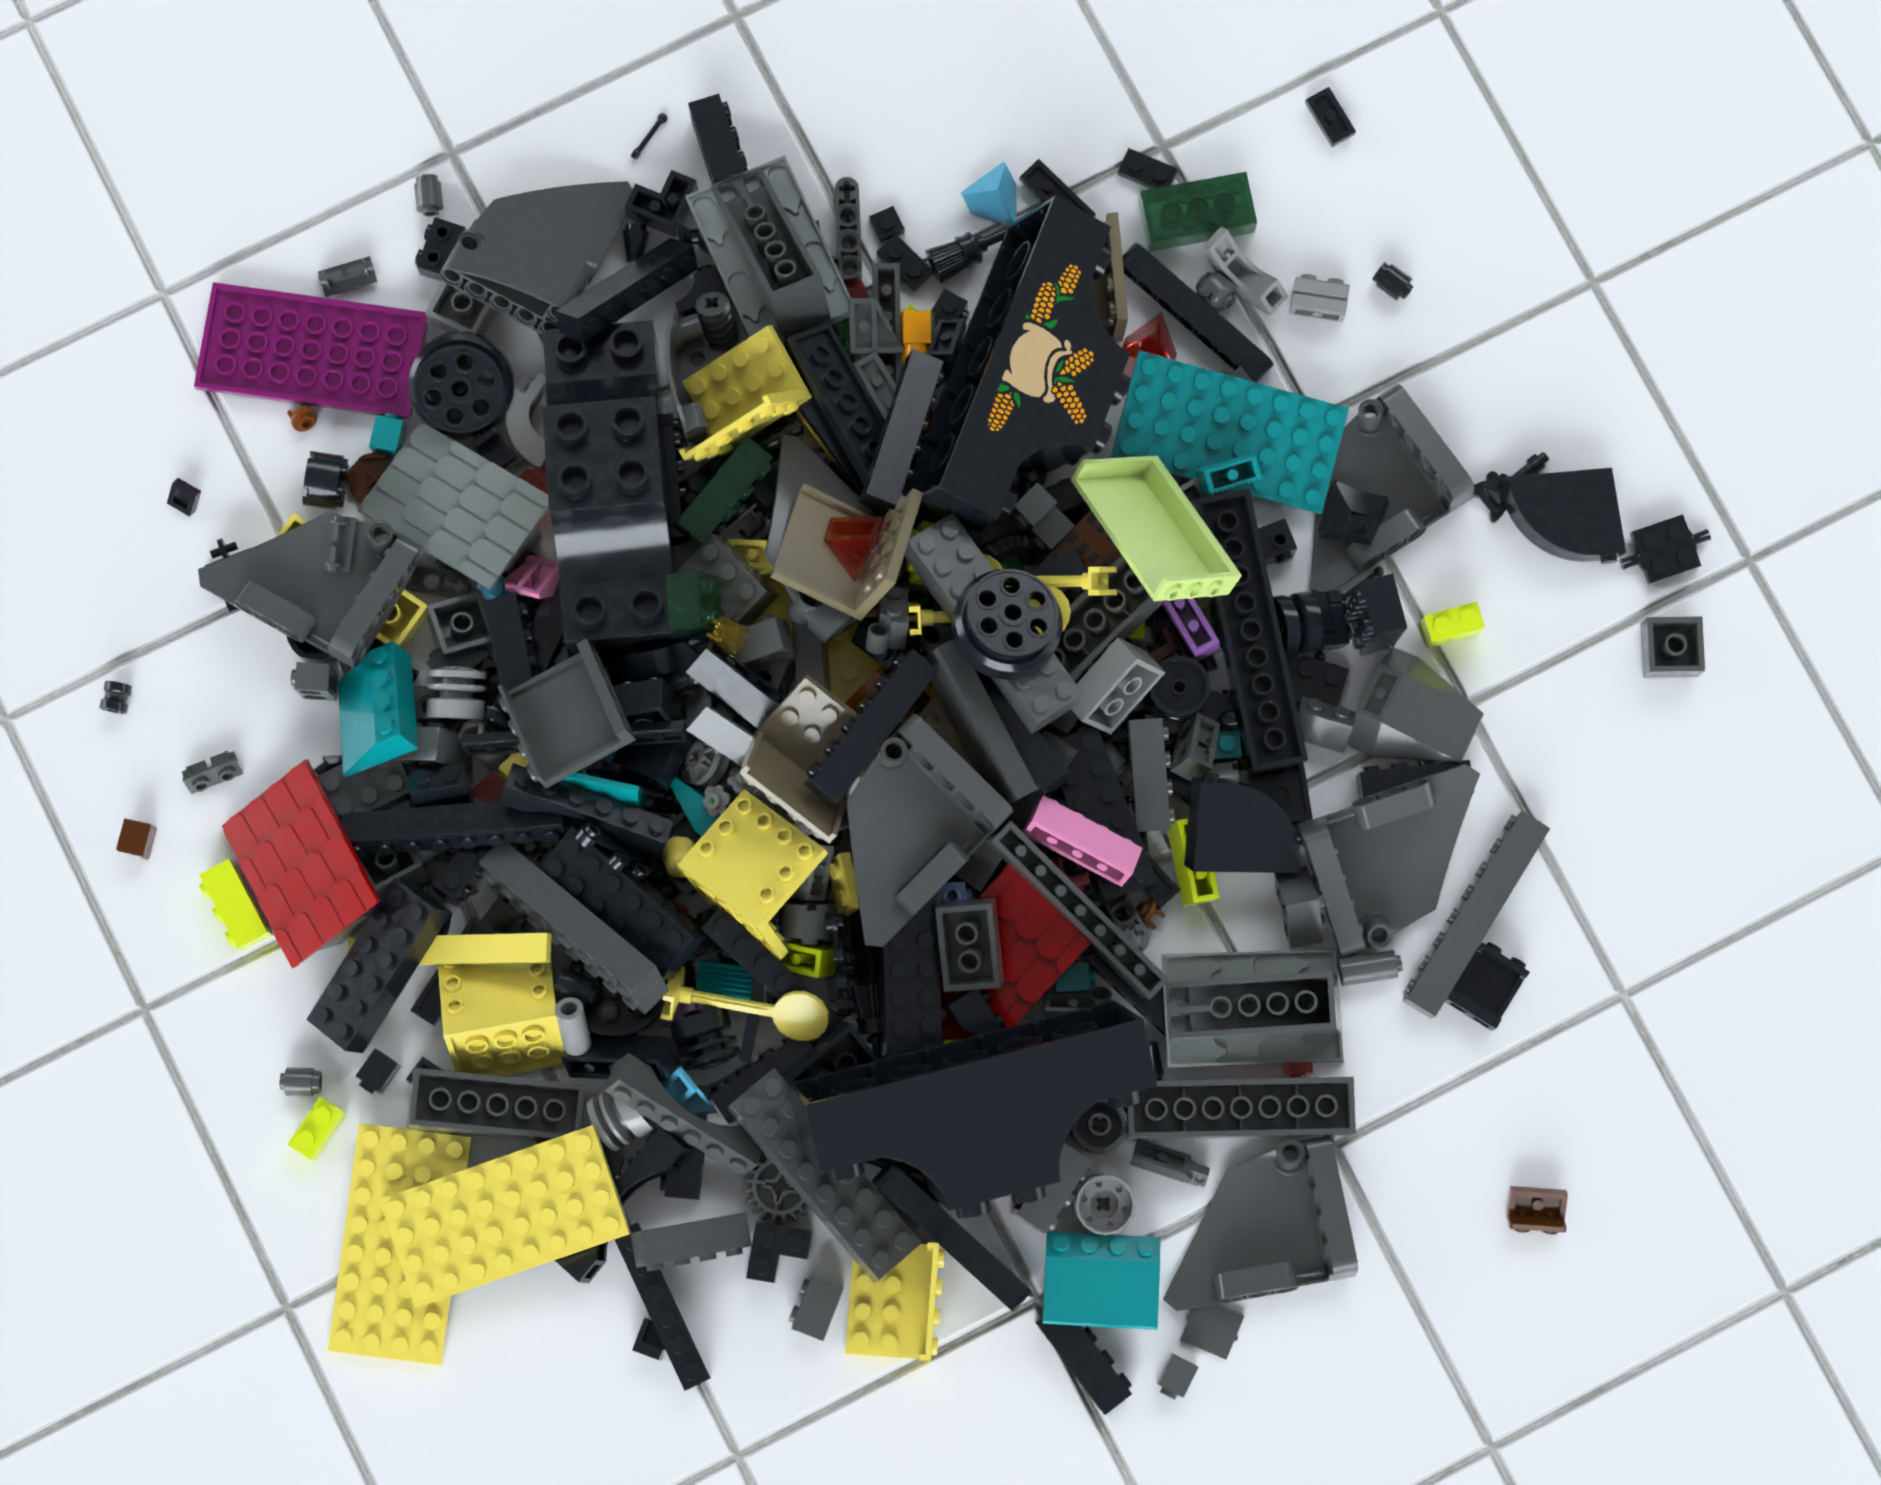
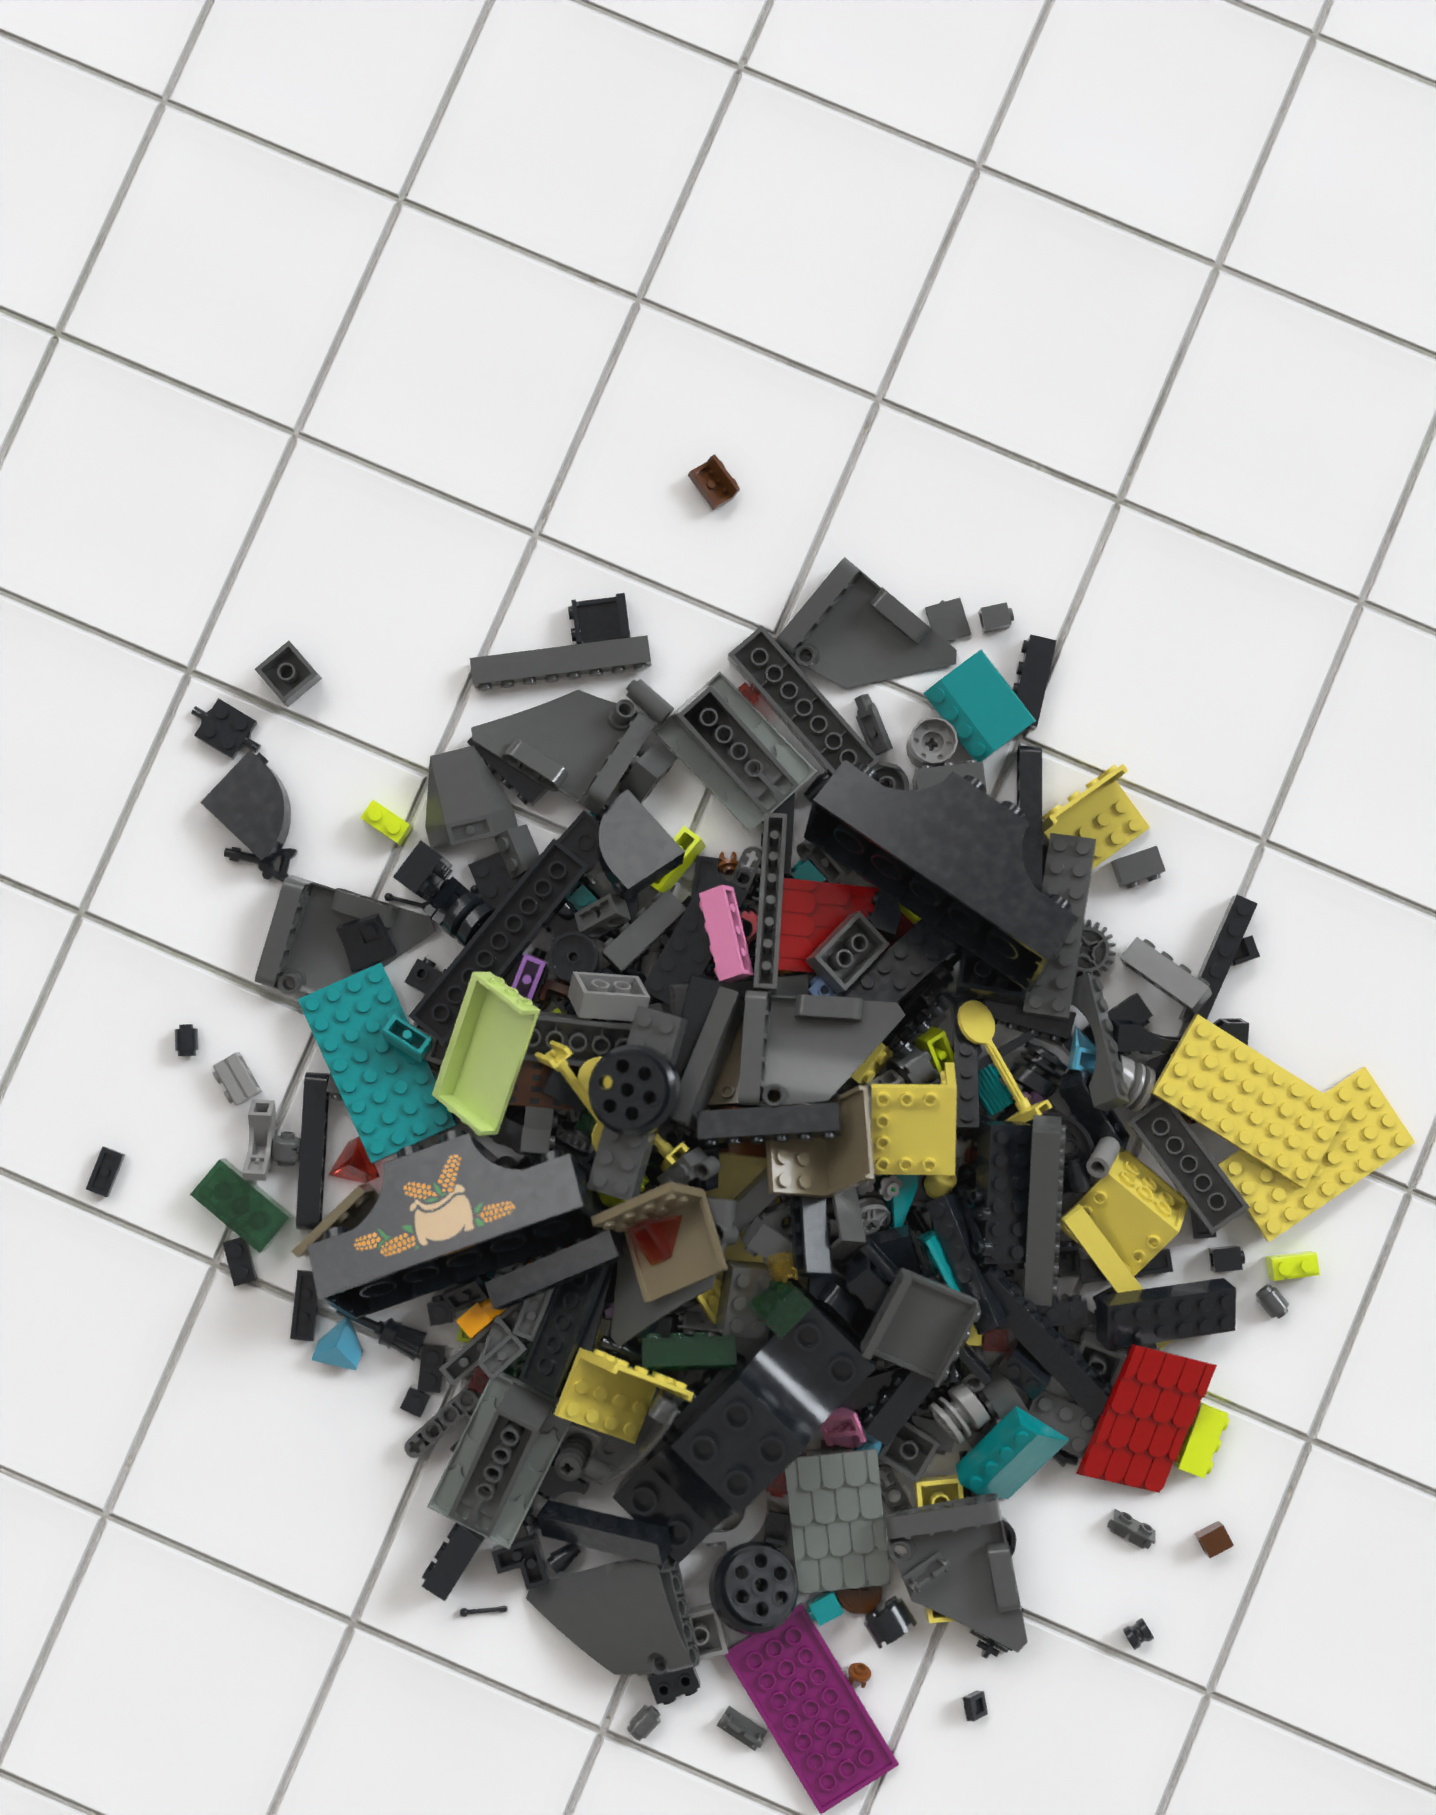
camera: 130 degrees left, 5 degrees up
(315, 681) = (1022, 1513): dark grey brick -> none
(771, 1242) = (1123, 925): black brick -> none

